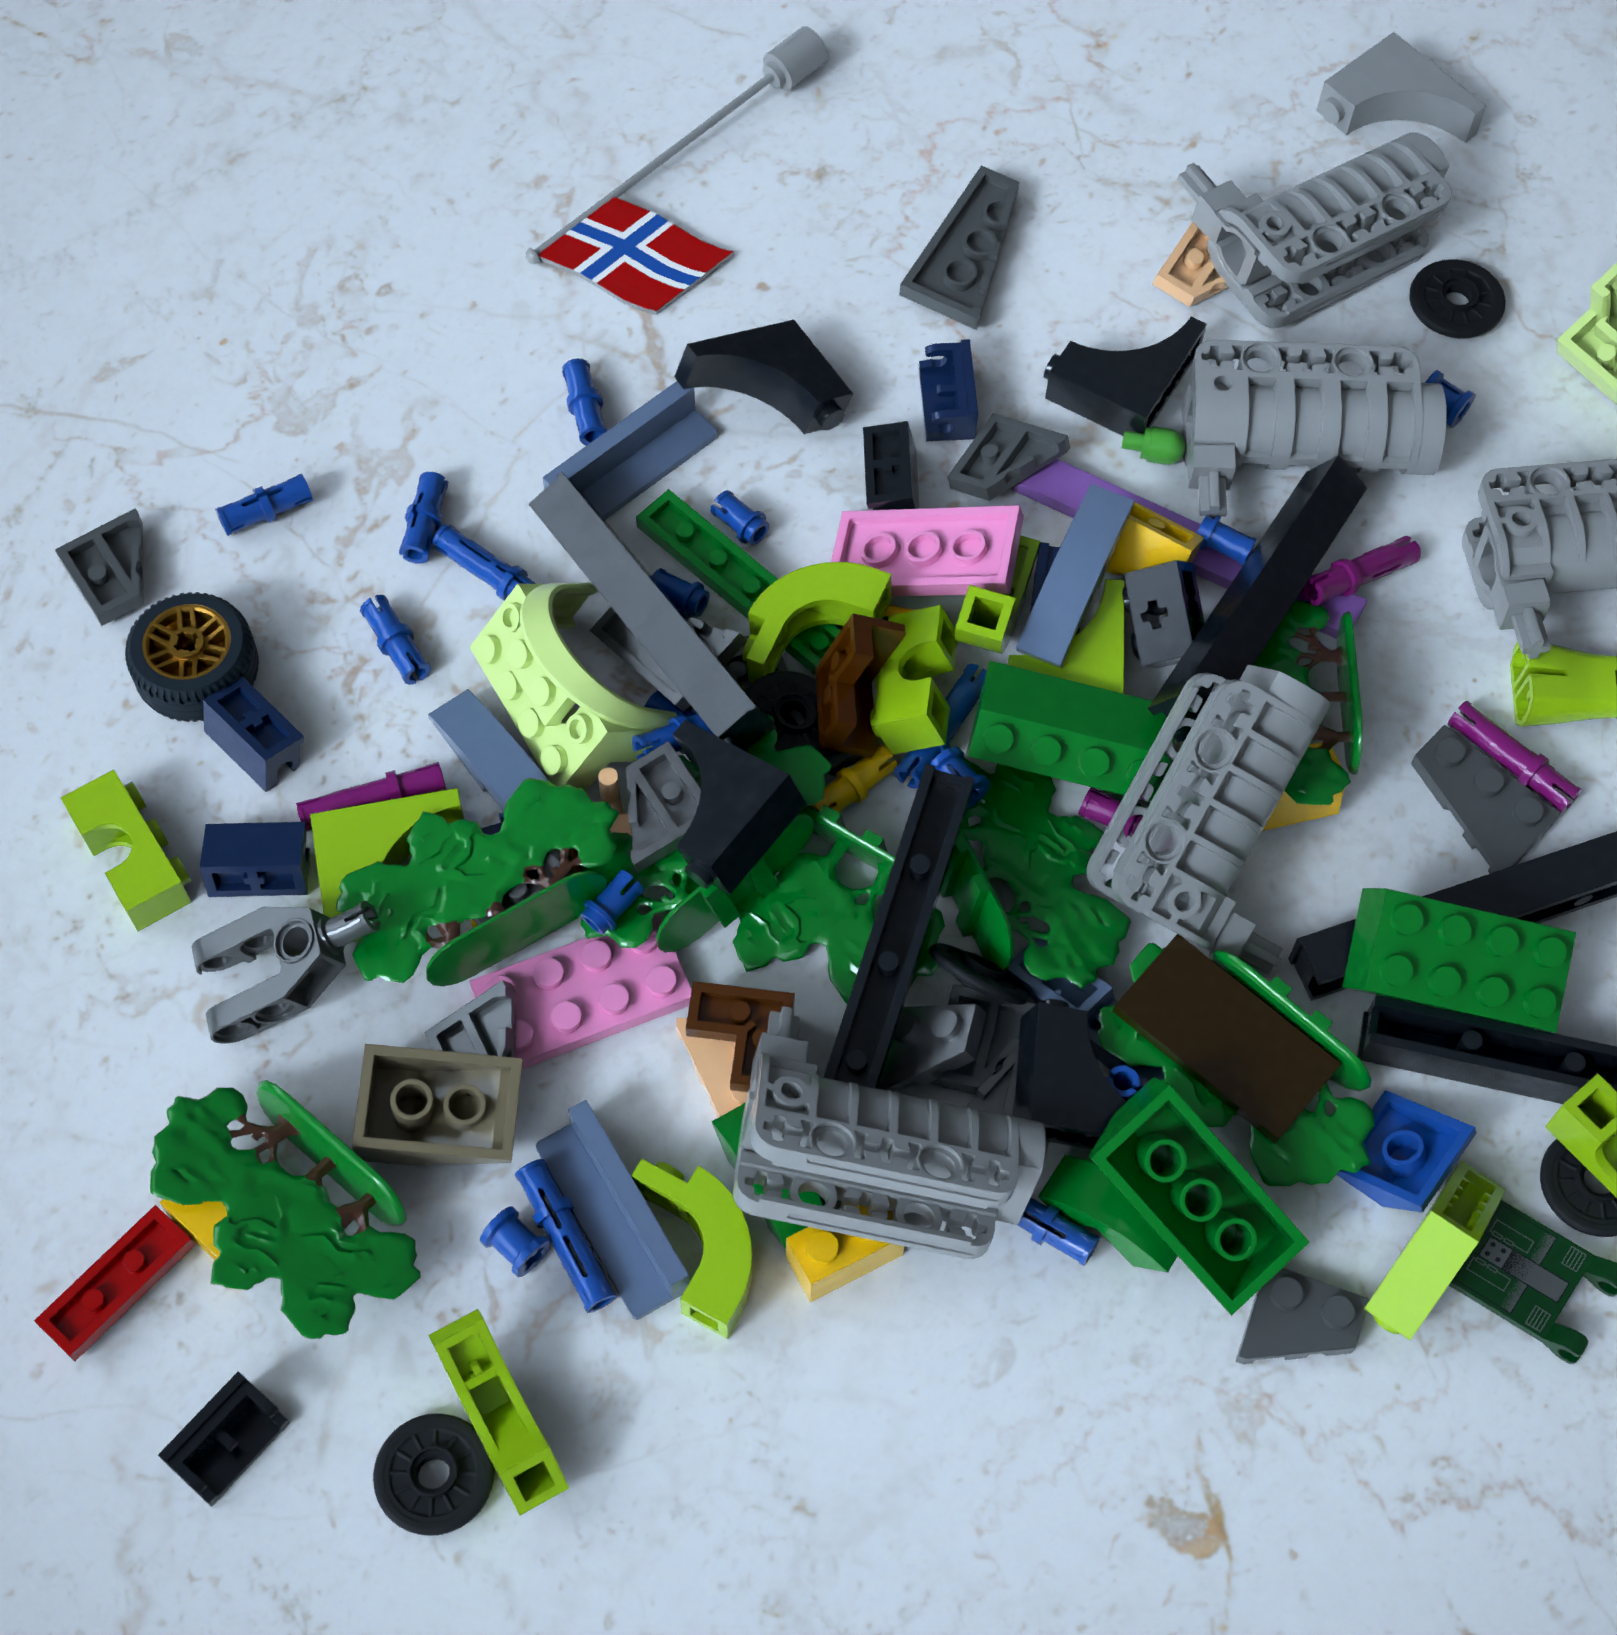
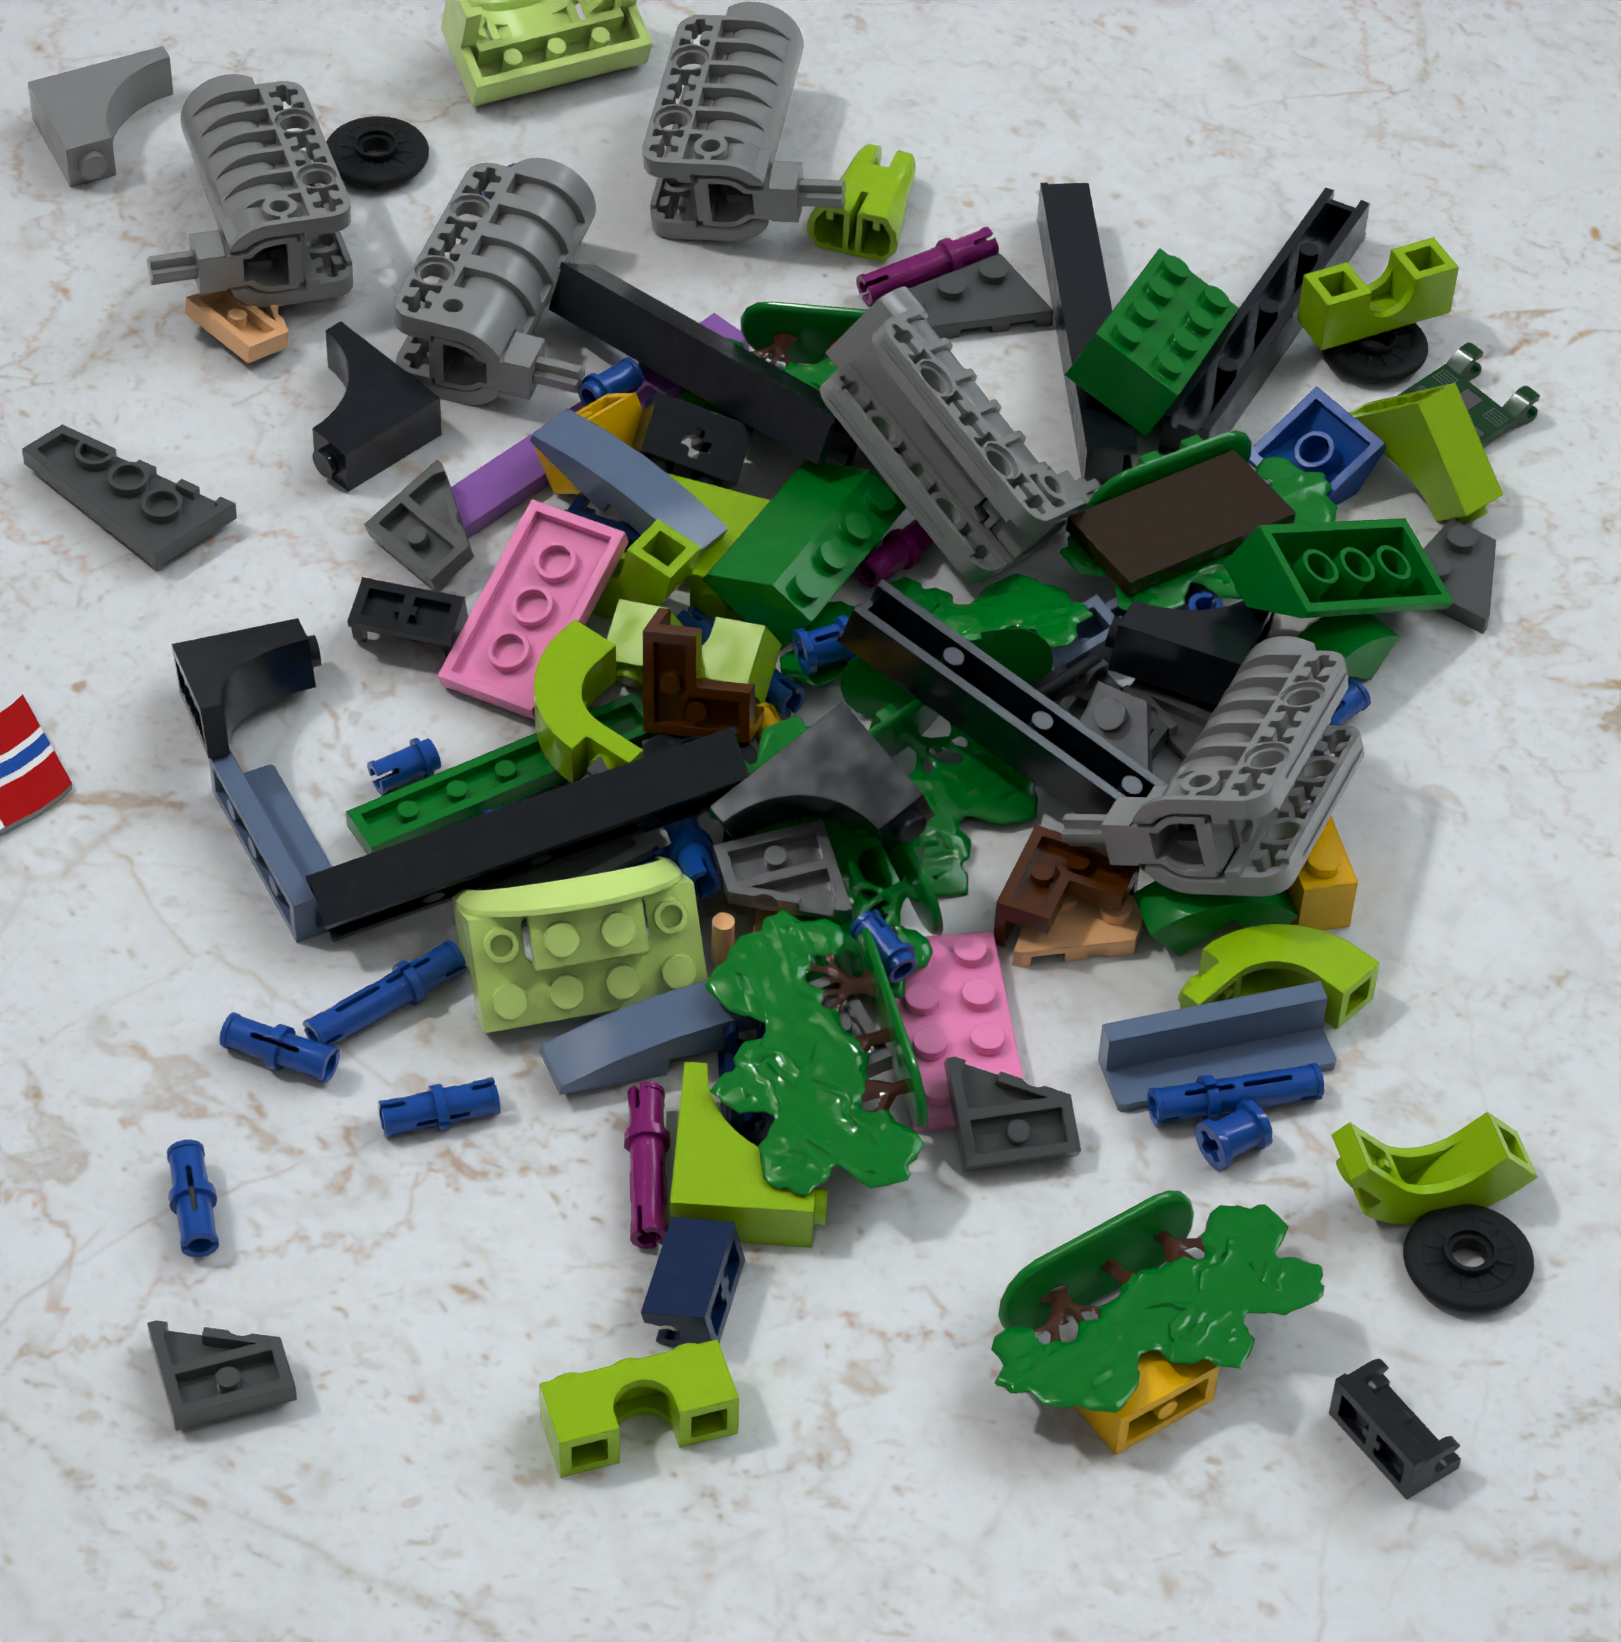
camera: 75 degrees left, 15 degrees down
(114, 1283) = (1190, 1502): red plate -> none
(188, 652) = (395, 1296): wheel -> none
(252, 732) = (524, 1257): dark blue hinge -> none
(309, 956) = (884, 1235): dark grey piece -> none
(436, 1107) = (1070, 1155): dark tan slope -> none
(584, 400) = (181, 867): blue pin -> none
(948, 392) = (316, 552): dark blue hinge -> none
(1156, 445) = (459, 414): bright green cylinder -> none
(1348, 575) = (682, 294): magenta pin -> none

